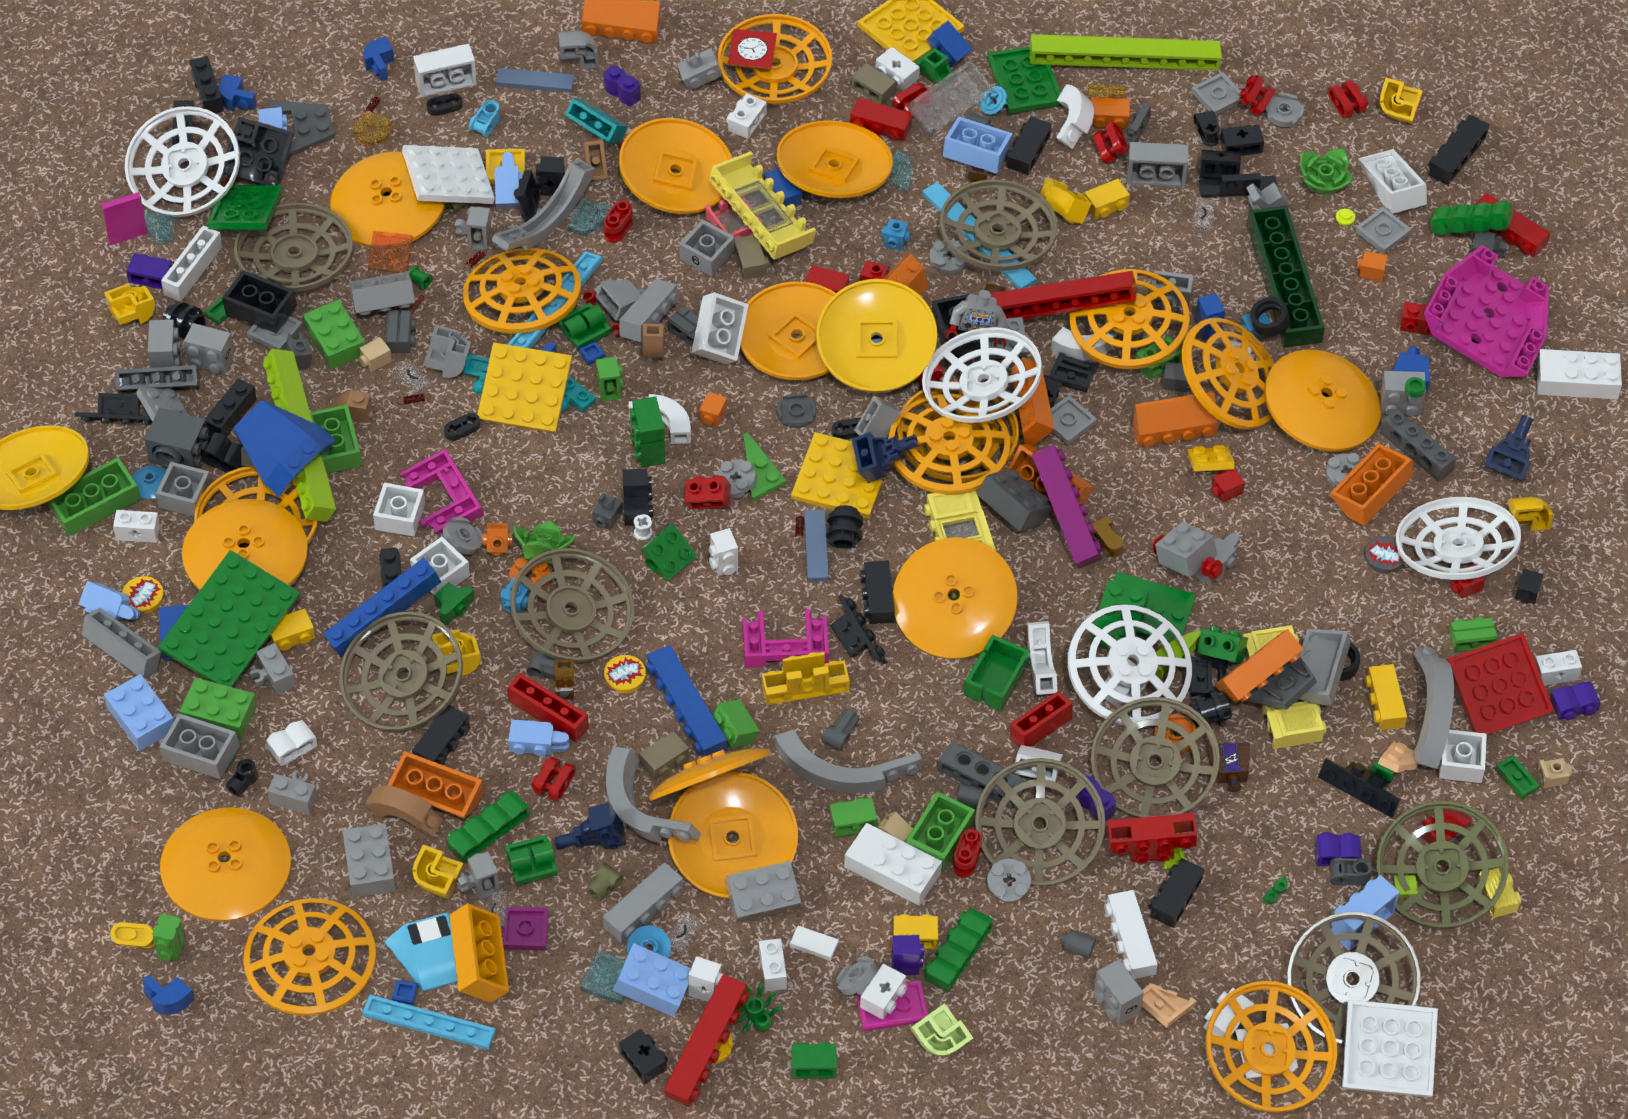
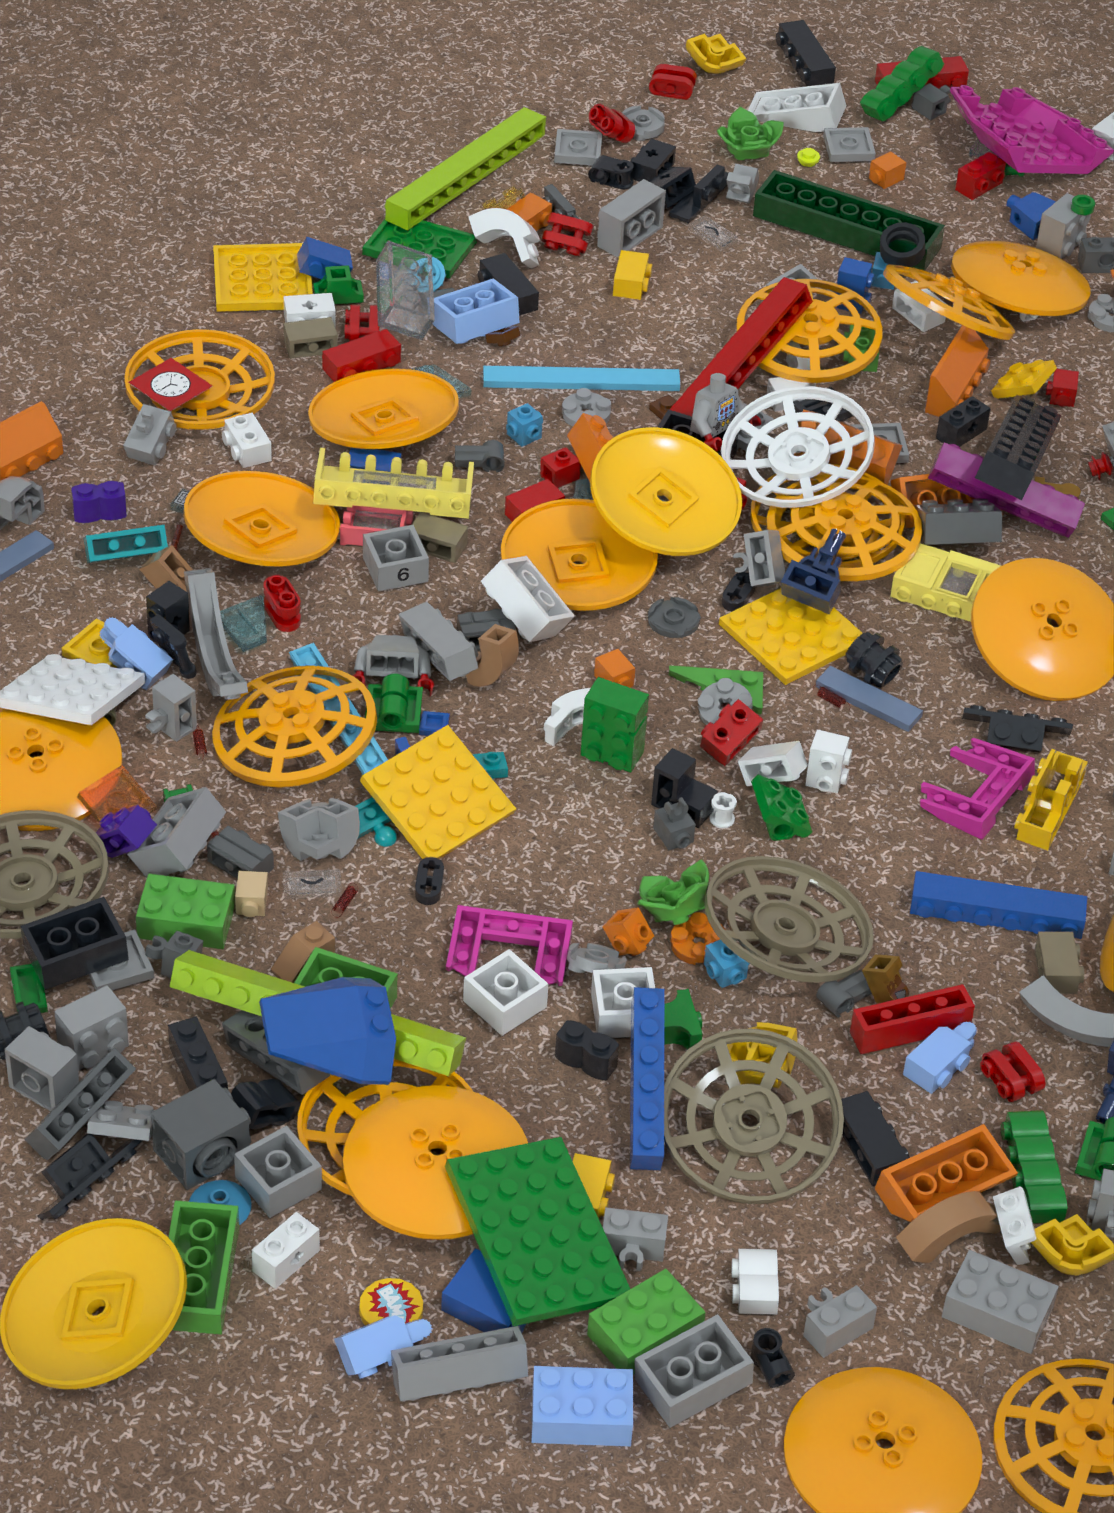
camera: 55 degrees left, 10 degrees down
(362, 267) = (125, 830): none -> dark purple brick
(431, 834) = (1015, 1223): none -> white bracket
(486, 118) = (17, 624): medium azure piece -> none
(609, 378) = (498, 721): bright green brick -> none
(624, 673) = (909, 936): tile -> none
(696, 526) = (774, 761): none -> white brick
(736, 723) = (1066, 877): bright green brick -> none
(848, 234) = (488, 456): none -> dark grey piece
(878, 592) = (979, 682): black brick -> none
(998, 220) = (583, 352): dark tan dish -> none
(1066, 203) = (607, 297): yellow brick -> none
(1103, 486) = (1018, 446): none -> black brick
(1130, 451) = (963, 422): none -> black brick
(1174, 377) = (898, 349): dark grey brick -> none

